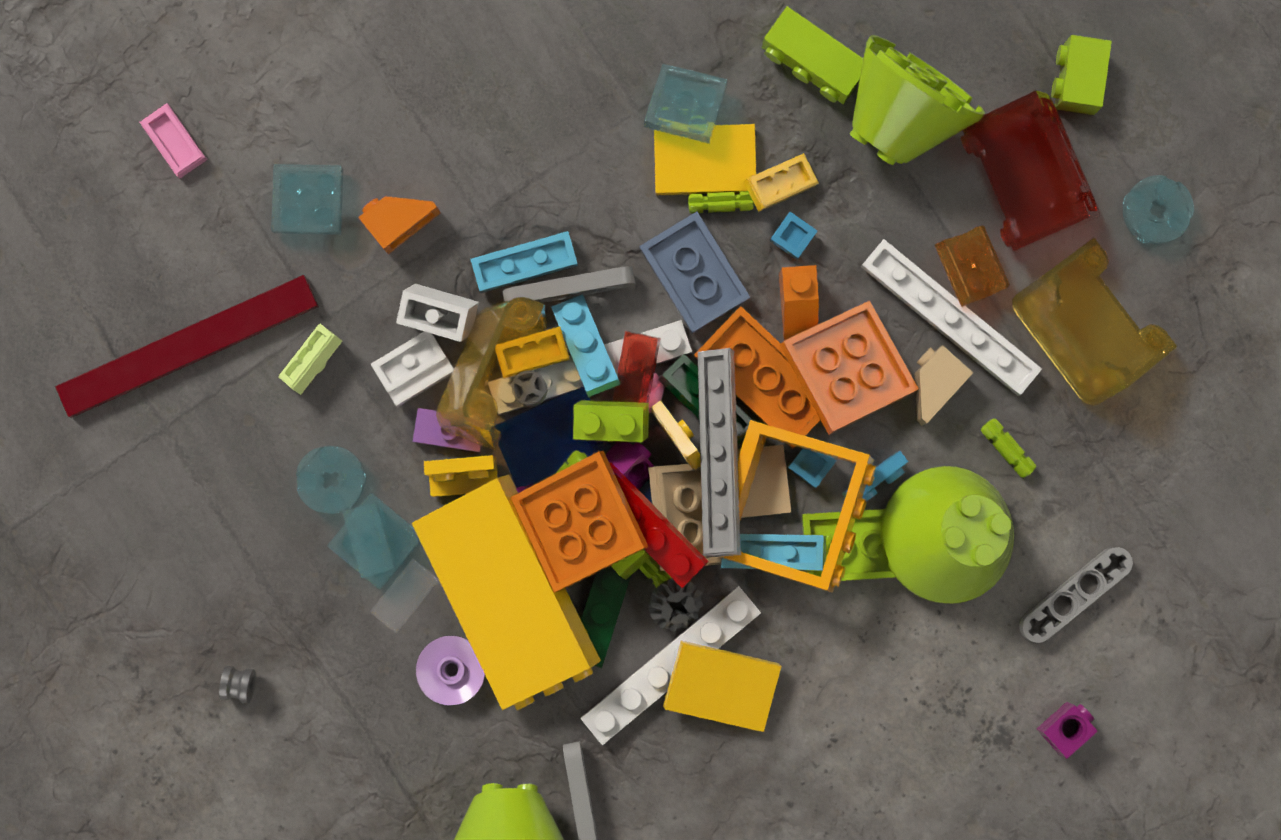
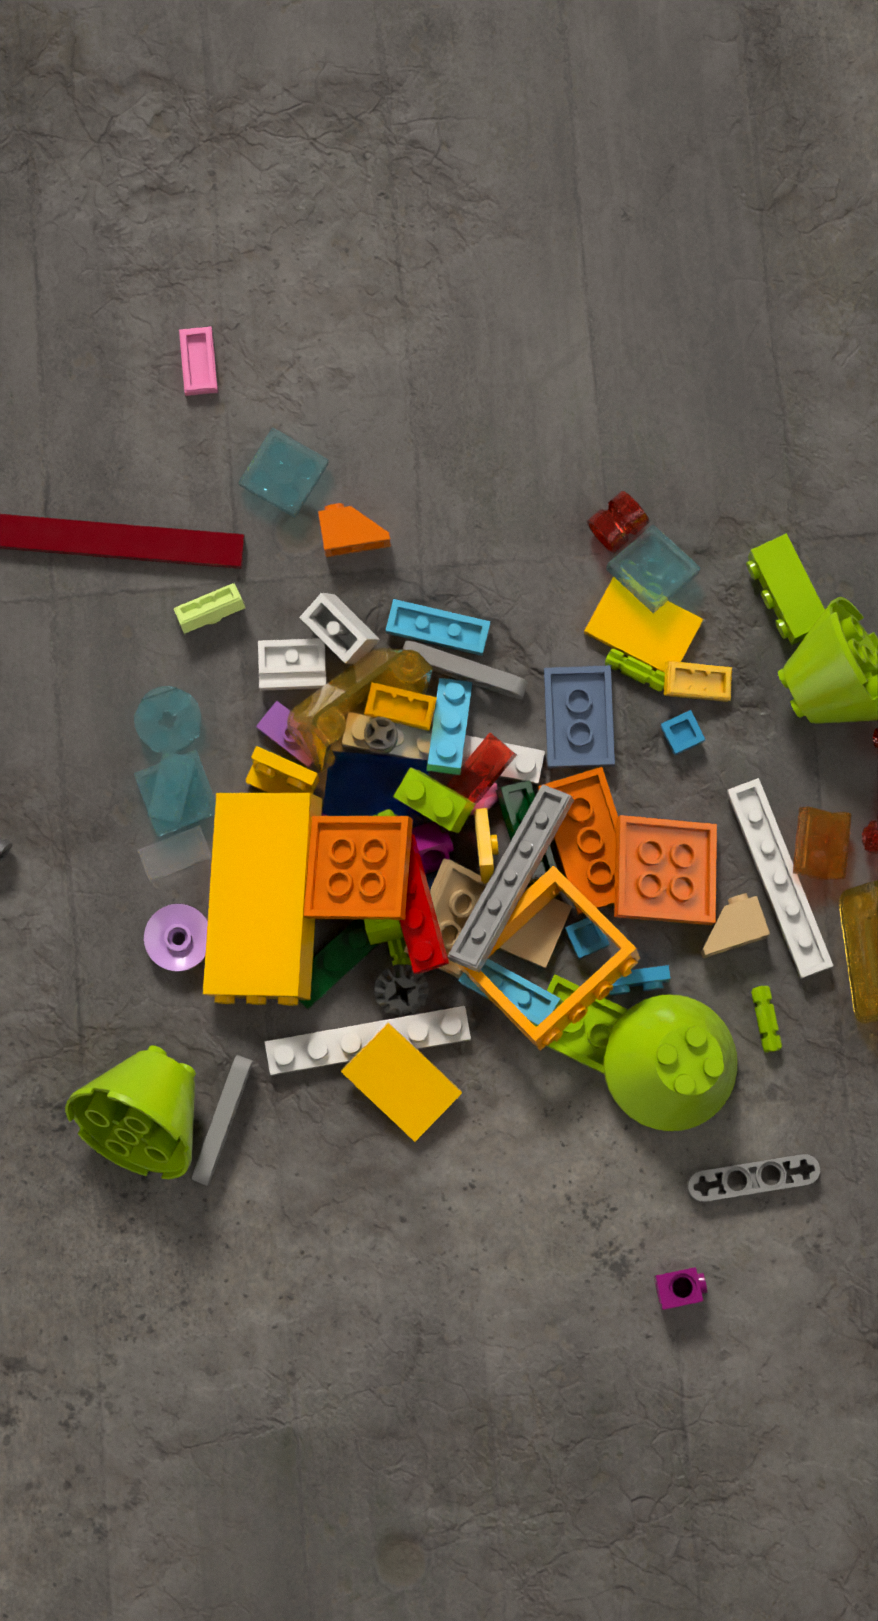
camera: 30 degrees right, 5 degrees down
(629, 83) = (618, 521): none -> clear red wheel
(798, 299) = (656, 788): orange slope -> none

